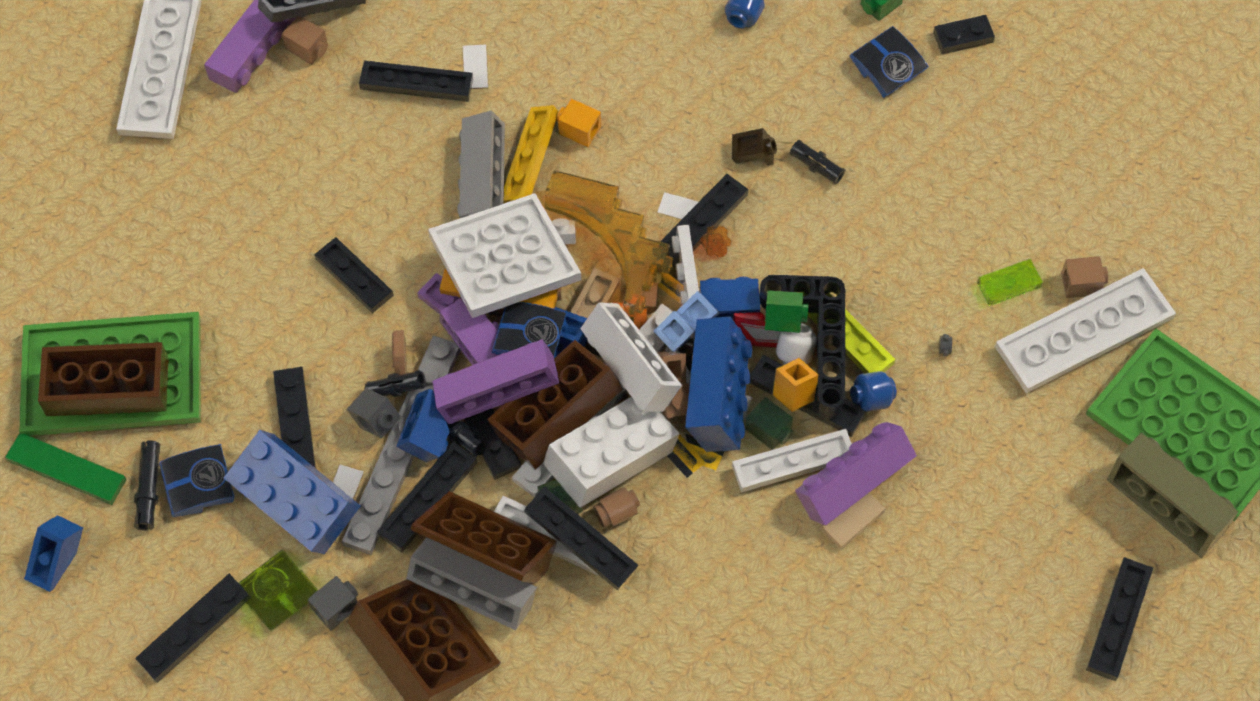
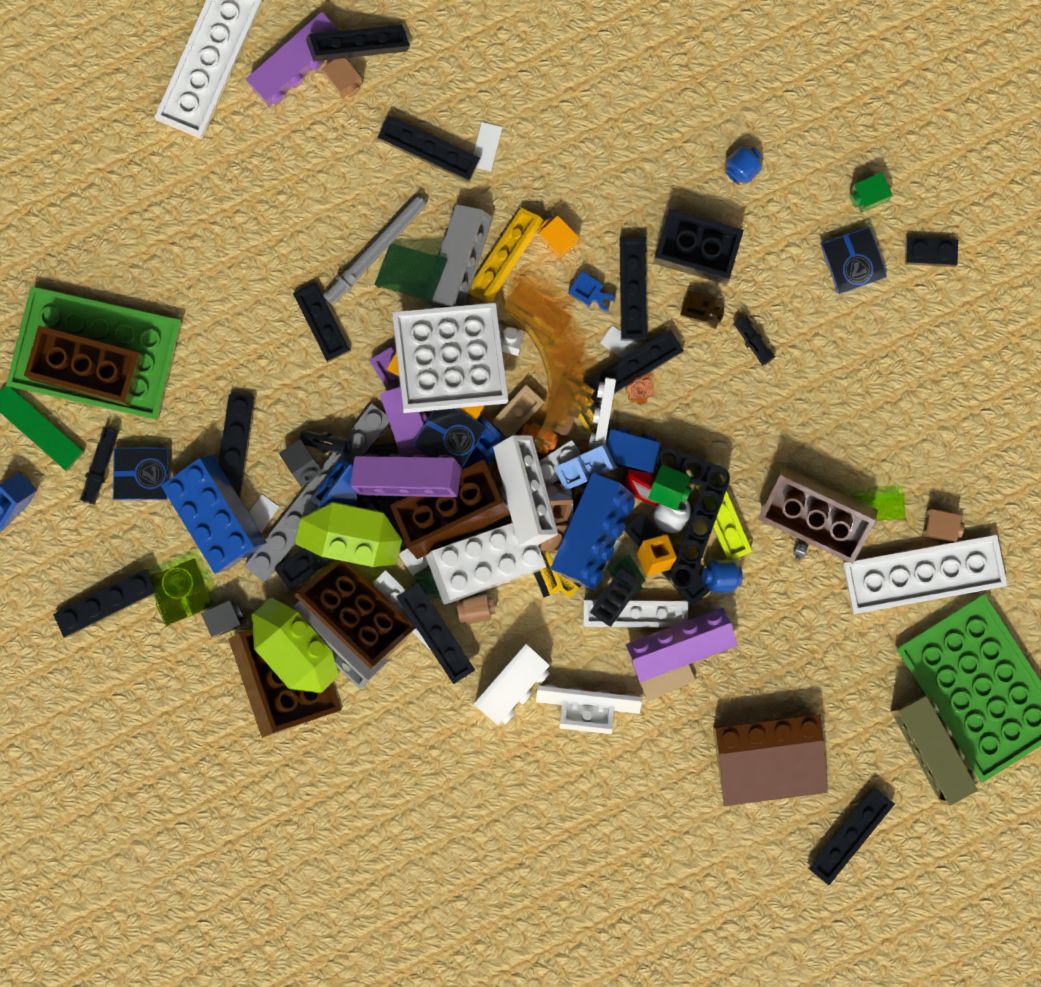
camera: 20 degrees right, 20 degrees up
(367, 226) = (374, 250): none -> light grey axle
(399, 352) = (337, 414): medium nougat tile -> none
(426, 601) = (292, 648): none -> lime wedge
(435, 196) = (411, 272): none -> clear green piece
(451, 462) = (350, 535): none -> lime wedge
(628, 163) = (588, 290): none -> blue plate
(674, 149) = (633, 289): none -> black plate
(685, 570) = (513, 685): none -> white slope
(727, 88) = (698, 246): none -> black brick
(760, 464) = (604, 615): none -> black slope
(777, 571) = (588, 709): none -> white bracket
(951, 298) = (818, 514): none -> reddish brown brick
(999, 564) = (771, 760): none -> reddish brown slope

